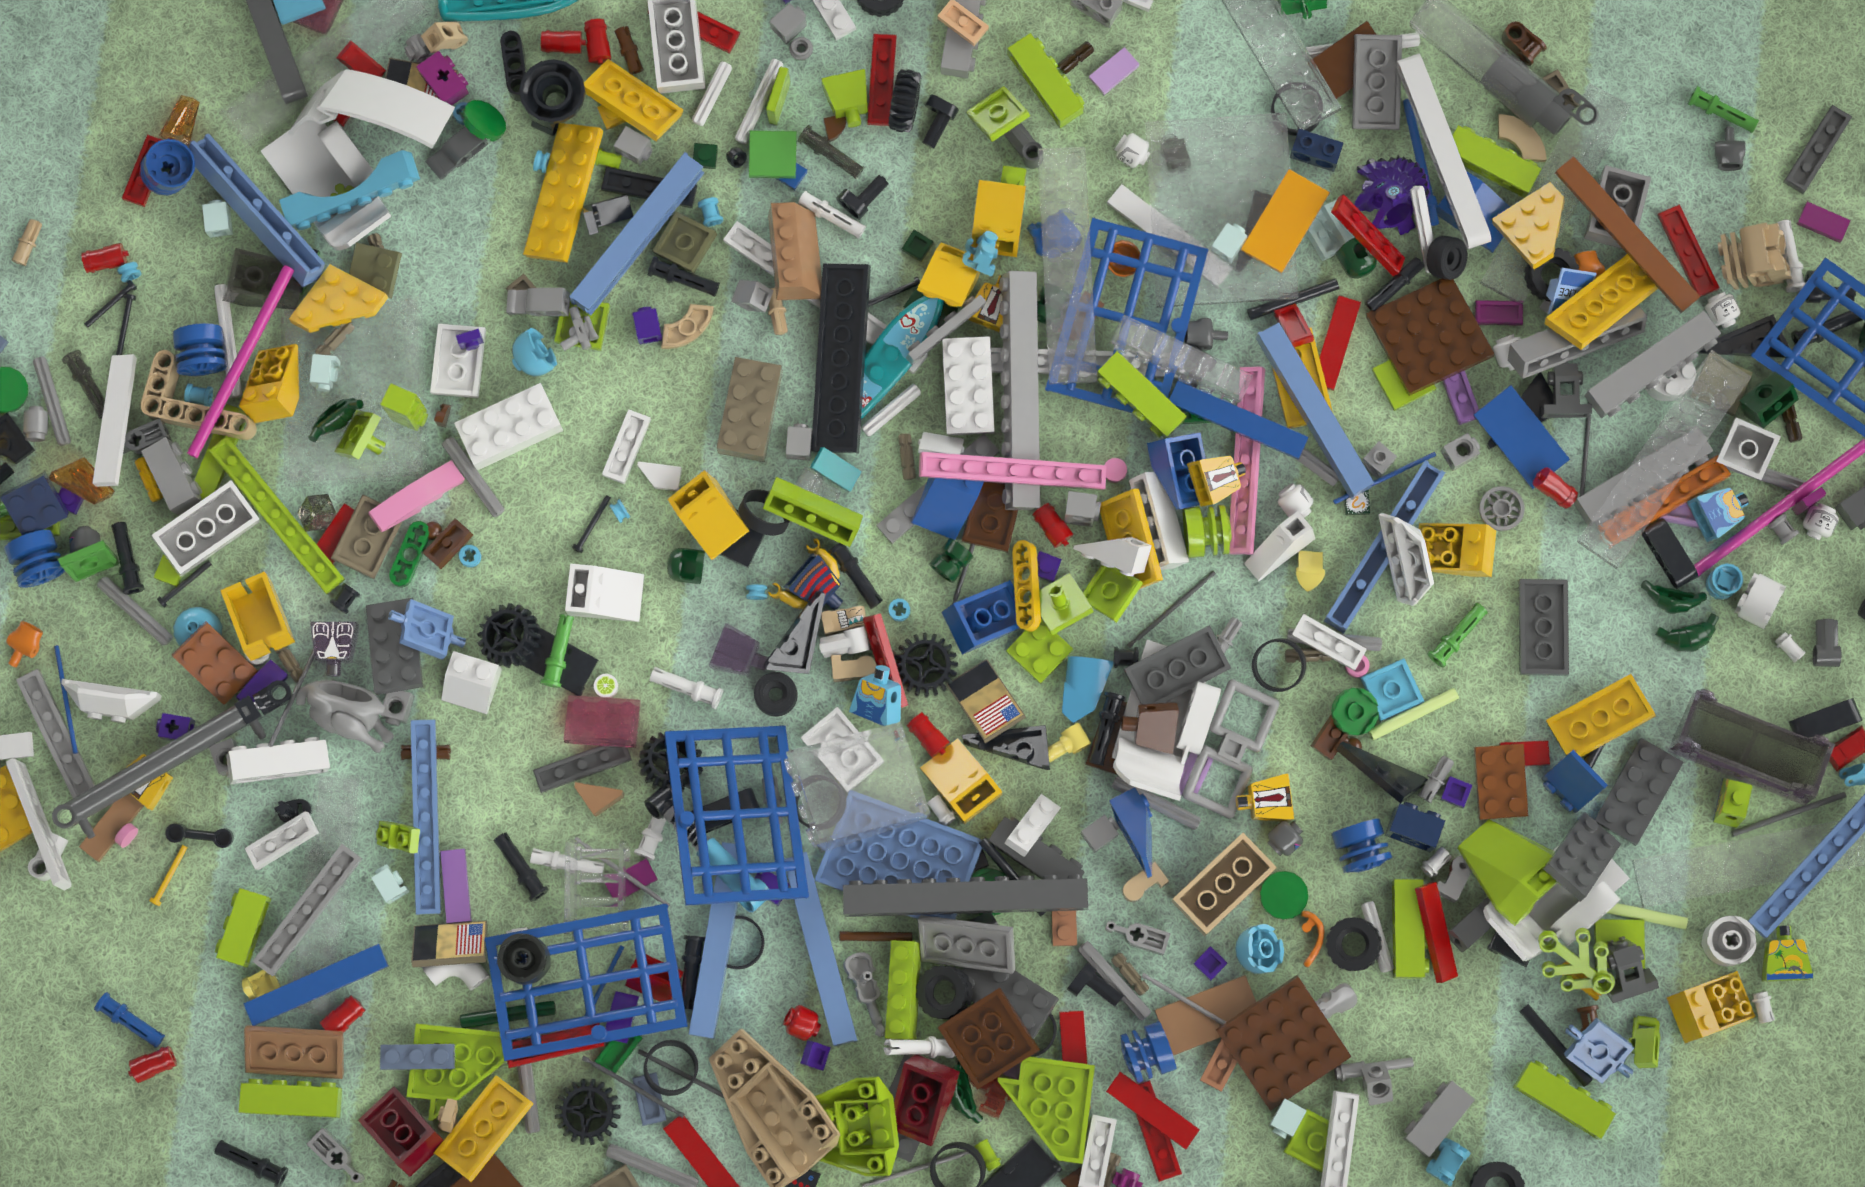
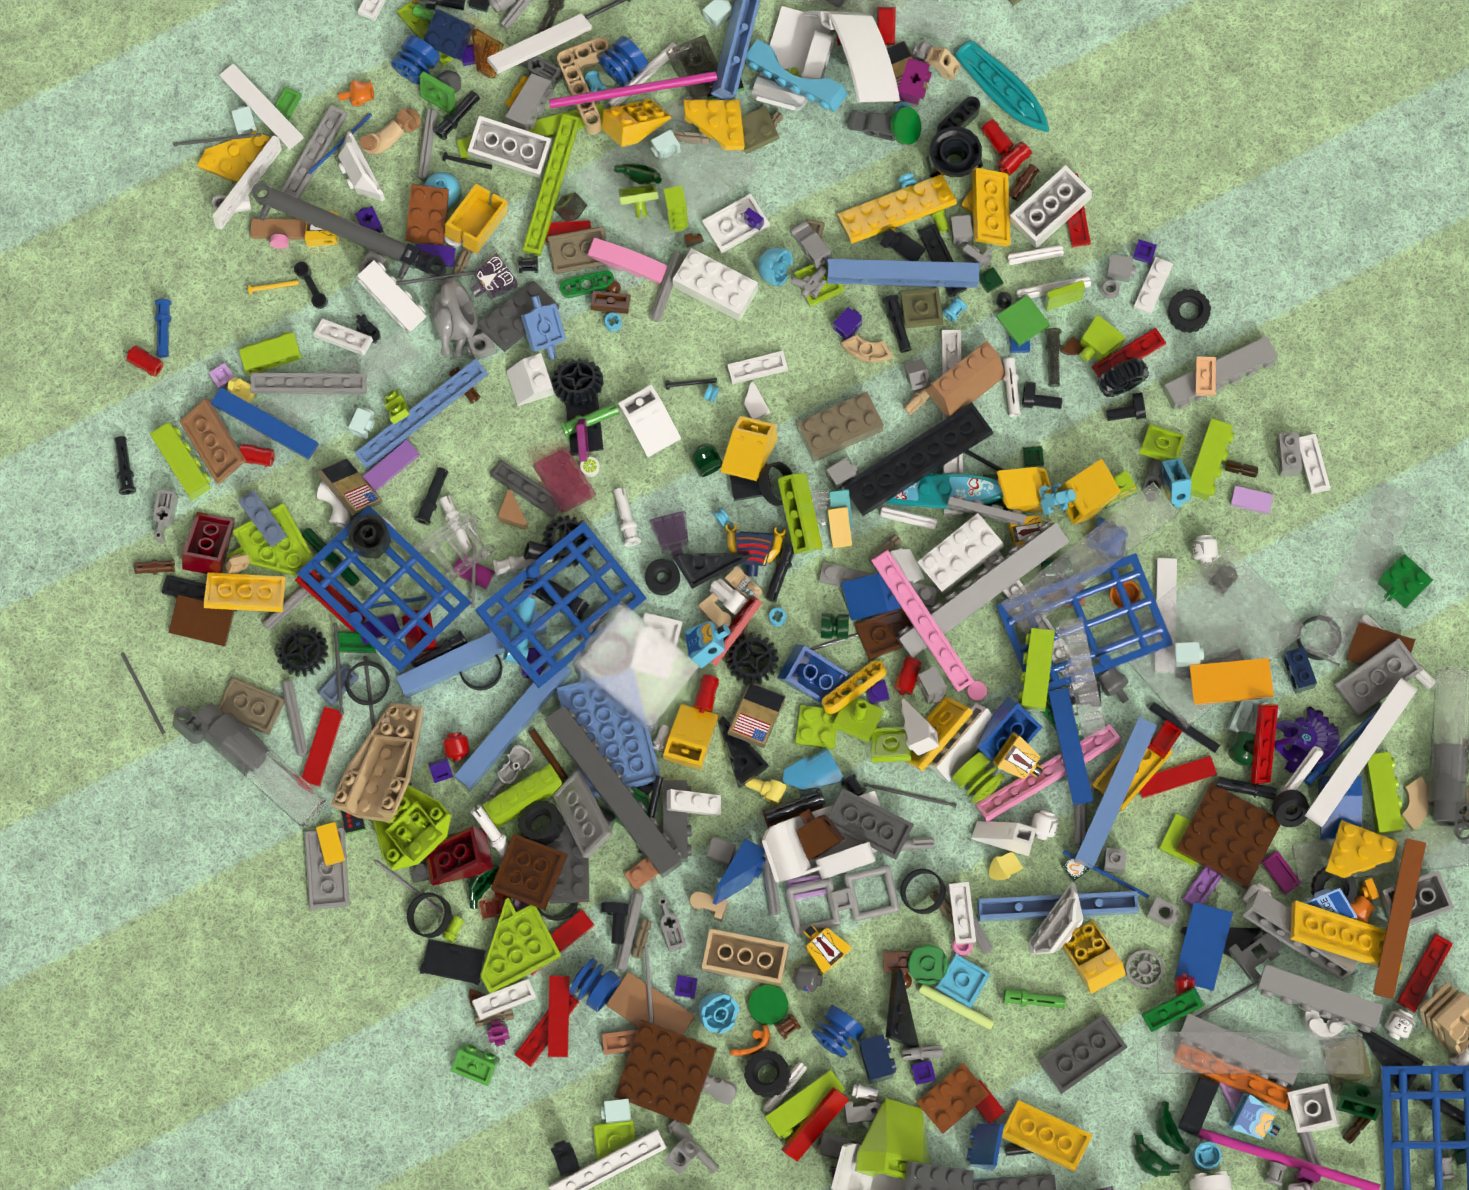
camera: 55 degrees right, 5 degrees down
(95, 641) = (385, 138): none -> piece
(229, 994) = (221, 375): none -> lavender plate
(577, 673) = (582, 438): none -> magenta tile
(670, 153) = (974, 255): none -> light grey bracket
(853, 483) = (839, 527): none -> yellow tile
(1048, 127) = (1179, 490): none -> medium azure torso
(1319, 891) = (787, 1026): none -> reddish brown bush
(1563, 510) = (1173, 1009): none -> green tile
(1575, 243) = (1369, 890): none -> light orange plate

